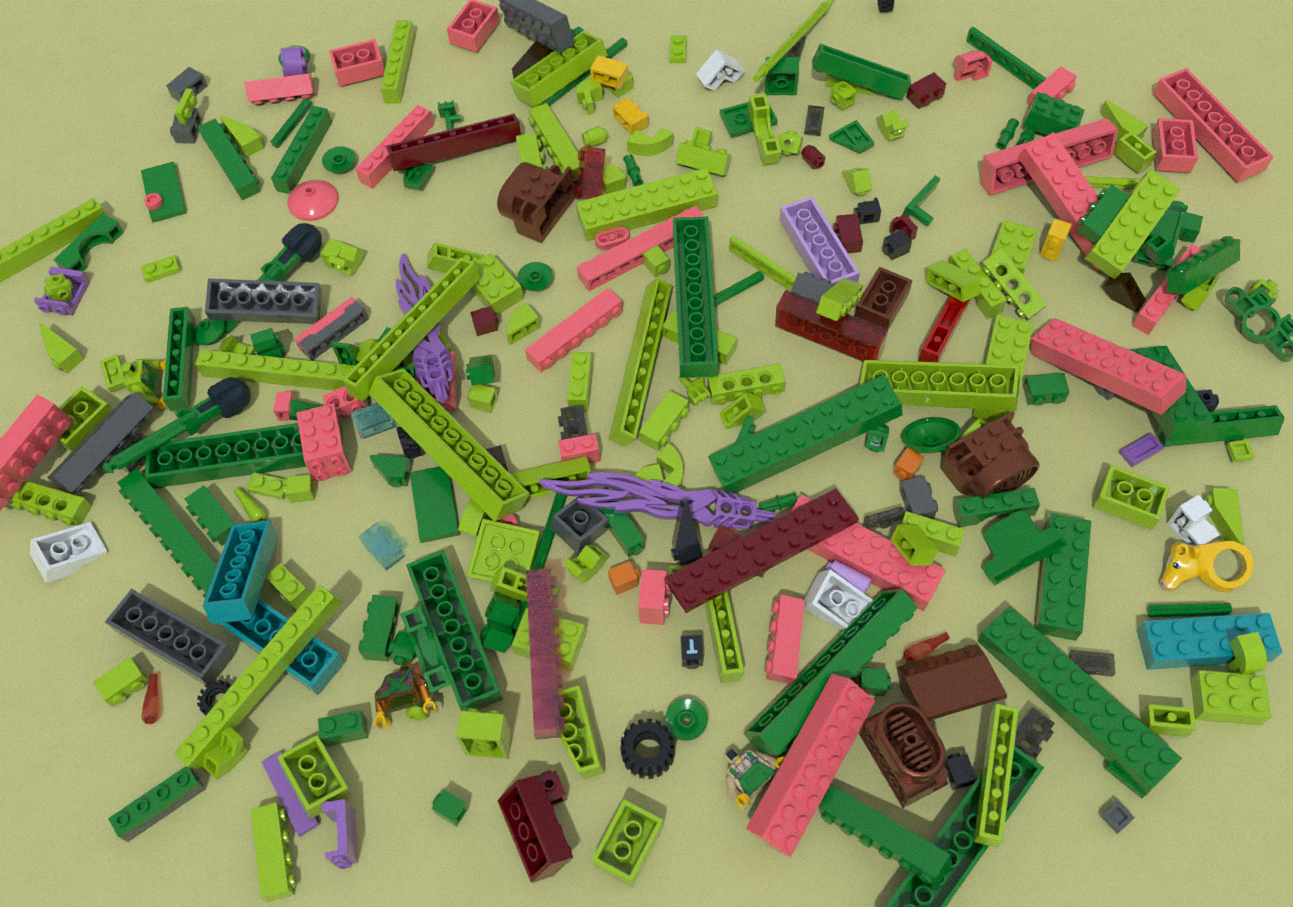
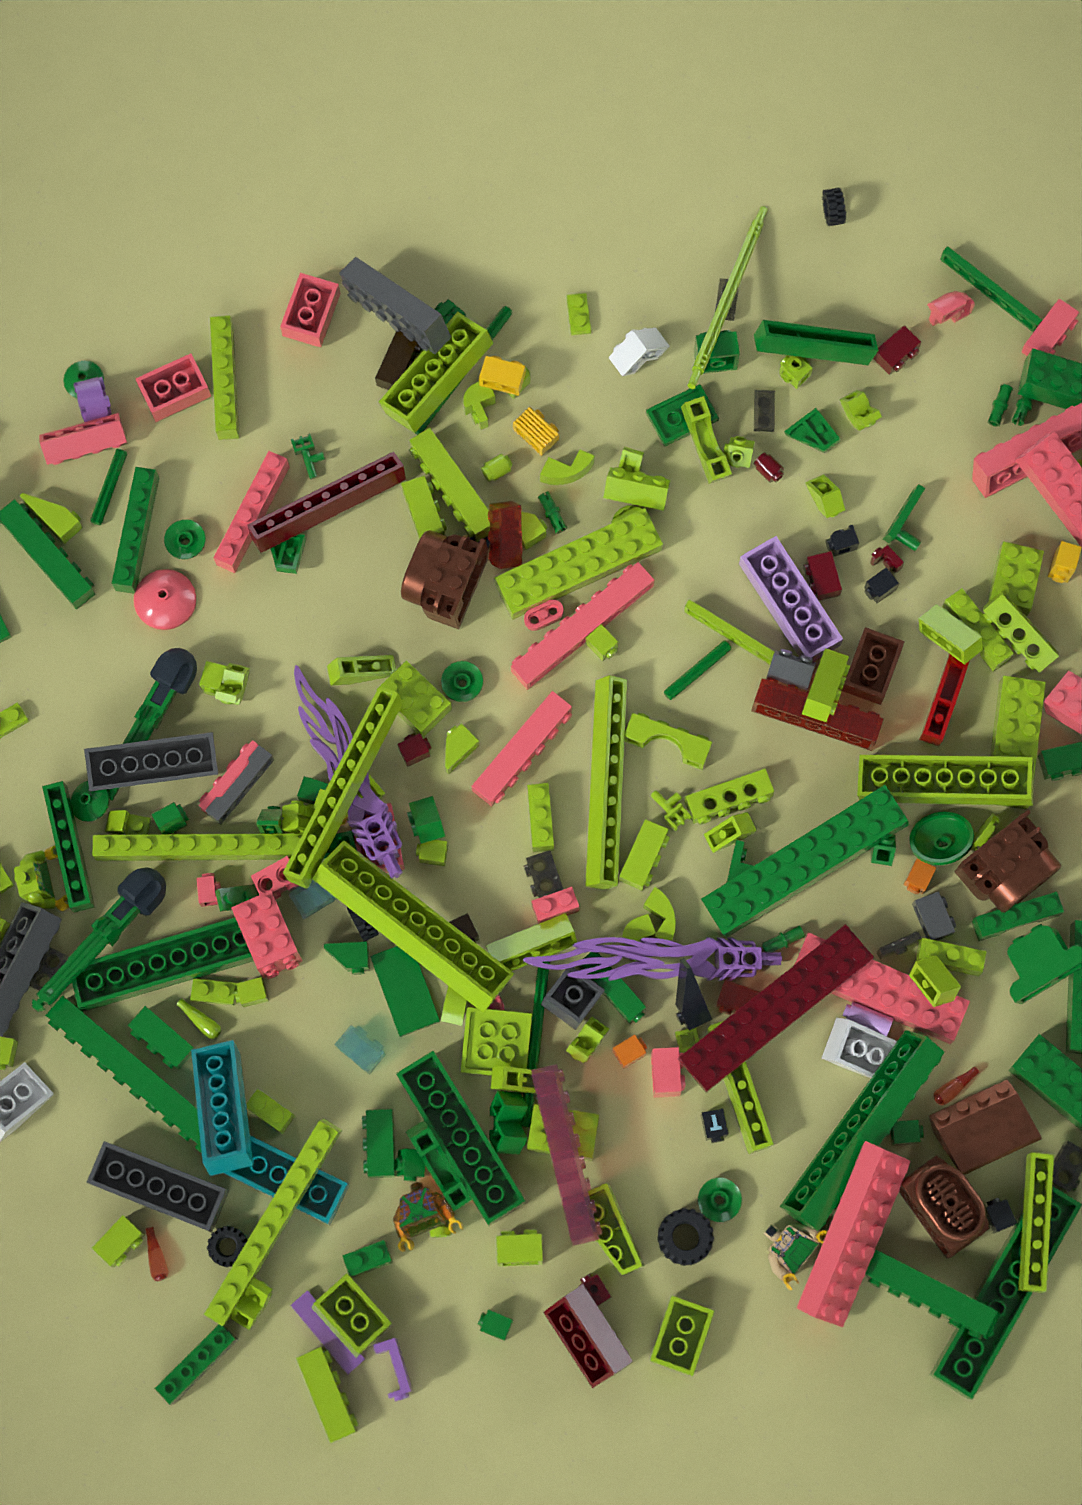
camera: 10 degrees left, 15 degrees up
(694, 298) = (657, 696): green brick -> none
(785, 639) = (809, 1099): coral brick -> none

